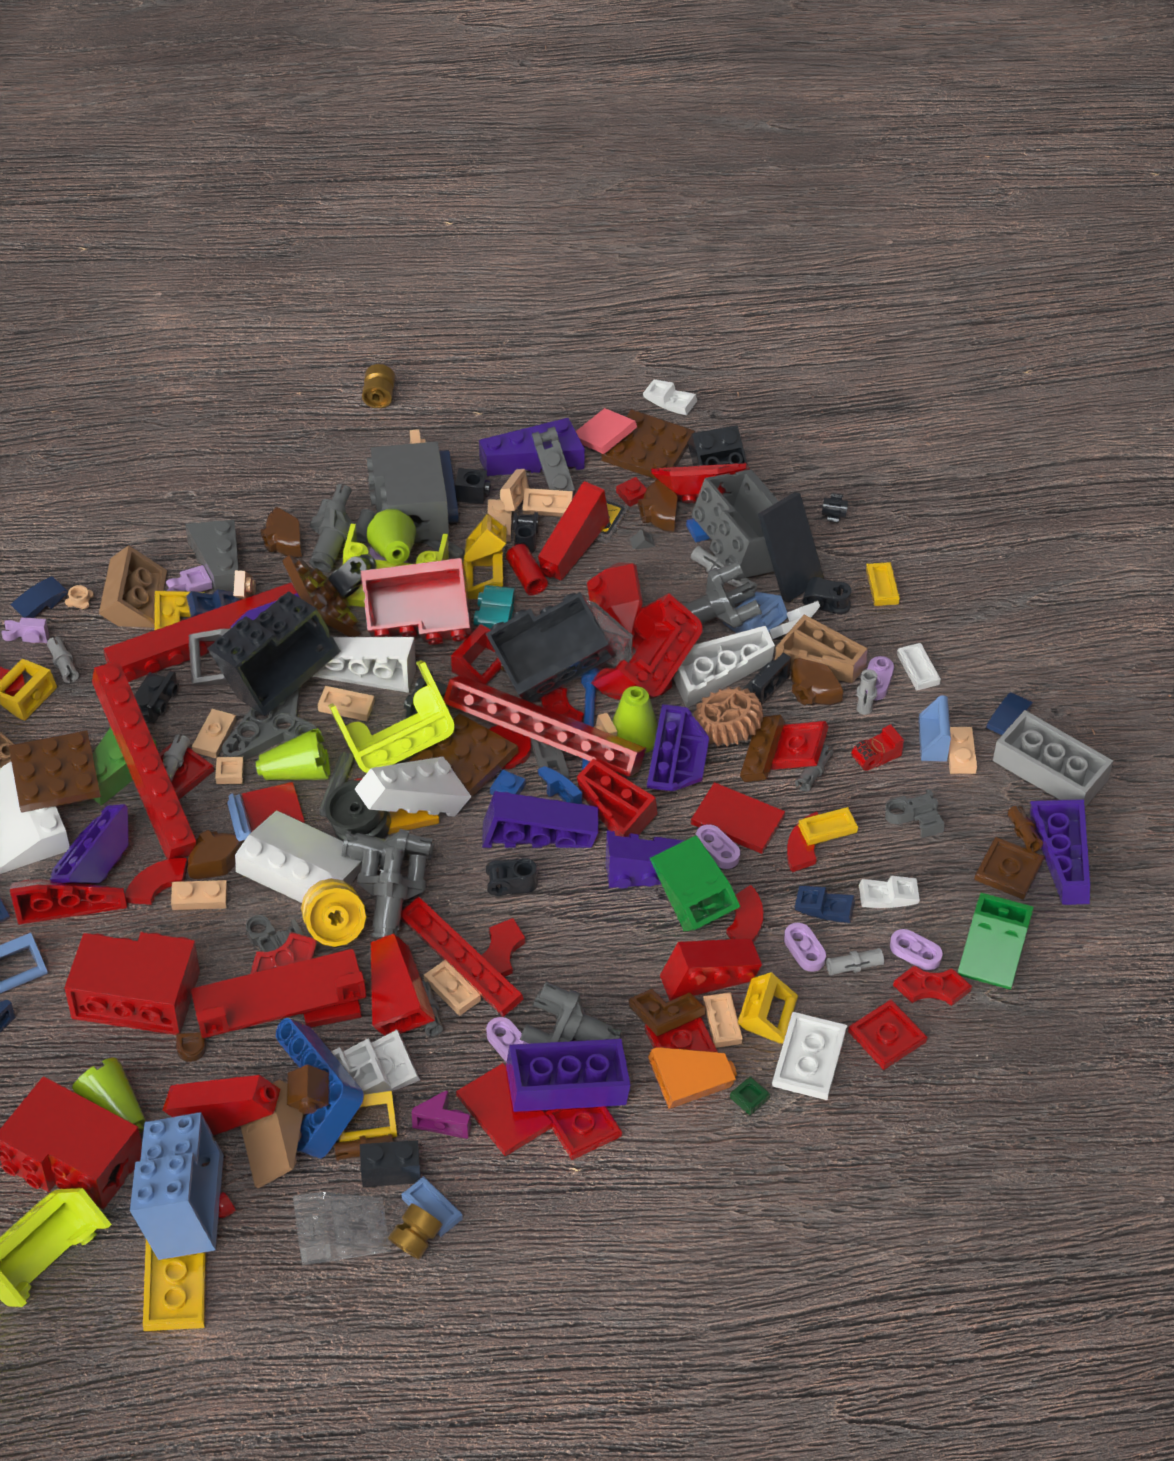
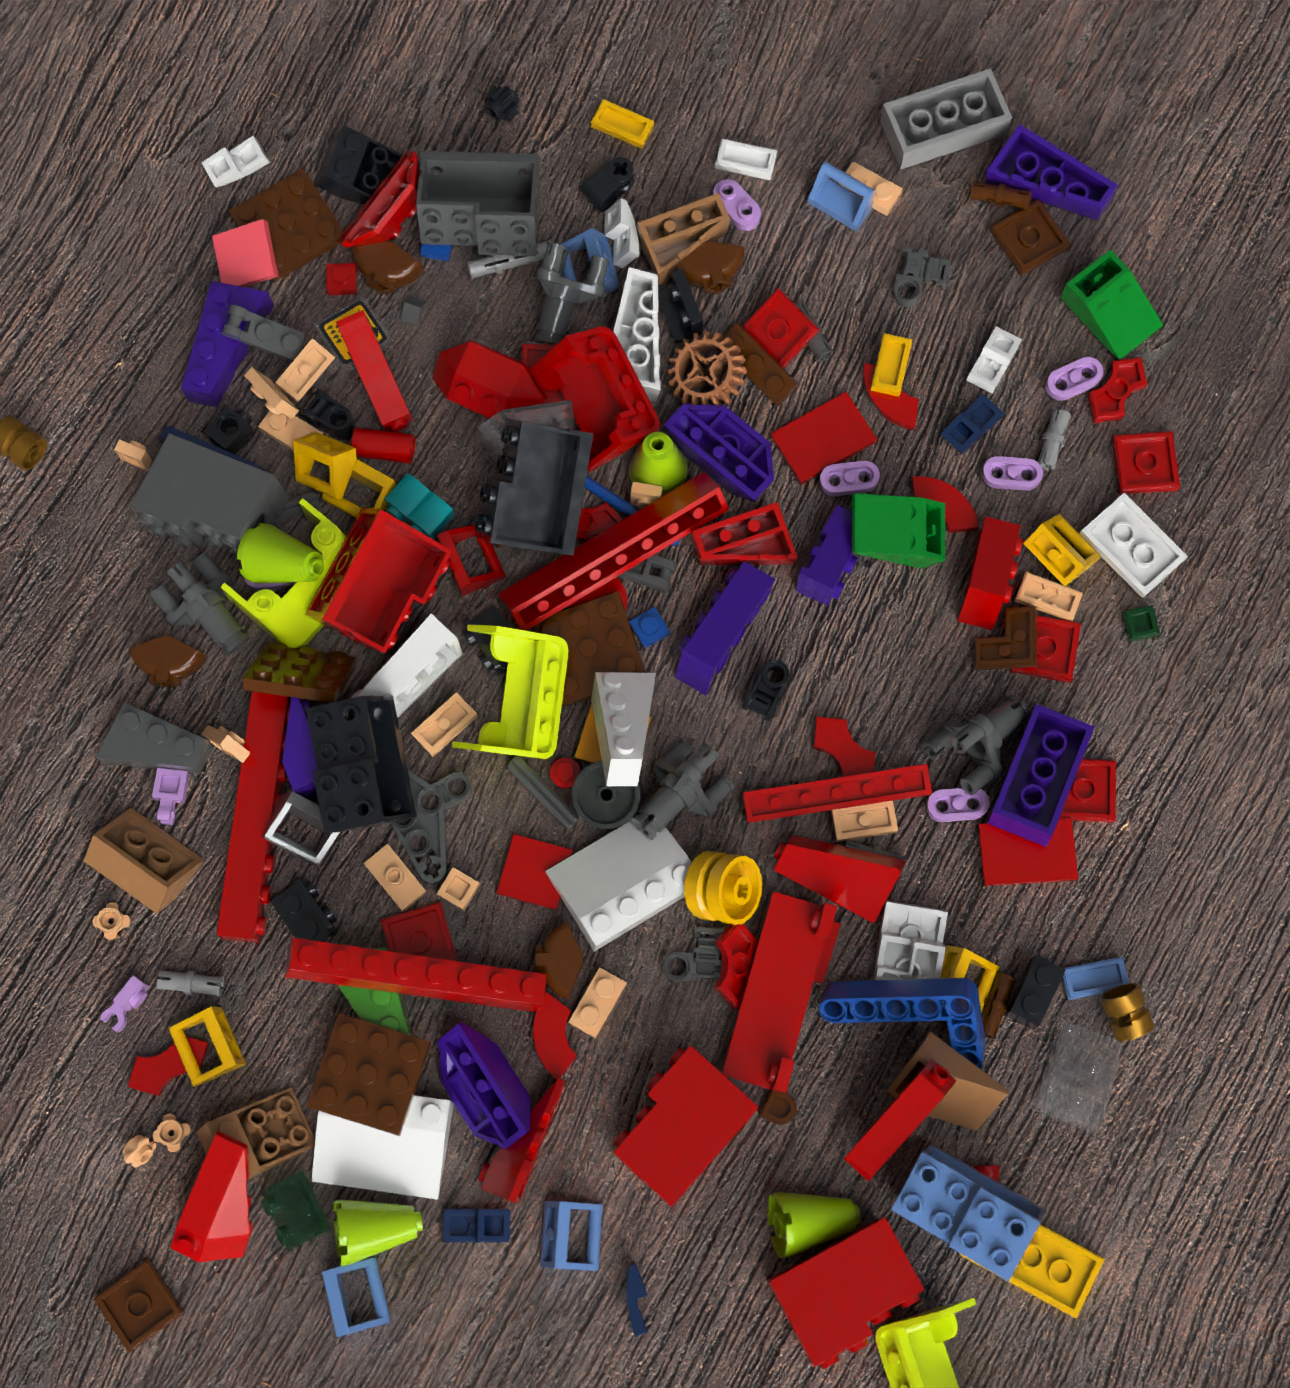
camera: 55 degrees left, 25 degrees up
(42, 594) = (84, 964): dark blue slope -> none
(170, 607) = (192, 831): yellow tile -> none
(174, 757) = (410, 936): light grey pin -> none
(204, 602) = (220, 786): dark blue slope -> none
(239, 816) = (535, 913): medium blue axle -> none
(296, 759) = (493, 817): lime cone -> none
(307, 1089) = (941, 1031): reddish brown brick -> none
(348, 577) = (293, 624): black piece -> none
(390, 887) = (727, 818): dark grey wheel -> none
(435, 1117) = (1002, 921): magenta slope -> none
(560, 784) = (692, 577): blue slope -> none
(690, 1074) = (1099, 663): orange slope -> none
(790, 545) = (549, 178): black tile -> none
(868, 682) = (763, 227): light grey pin -> none
(878, 749) = (827, 260): red leg -> none
(1008, 712) = (860, 118): dark blue slope -> none

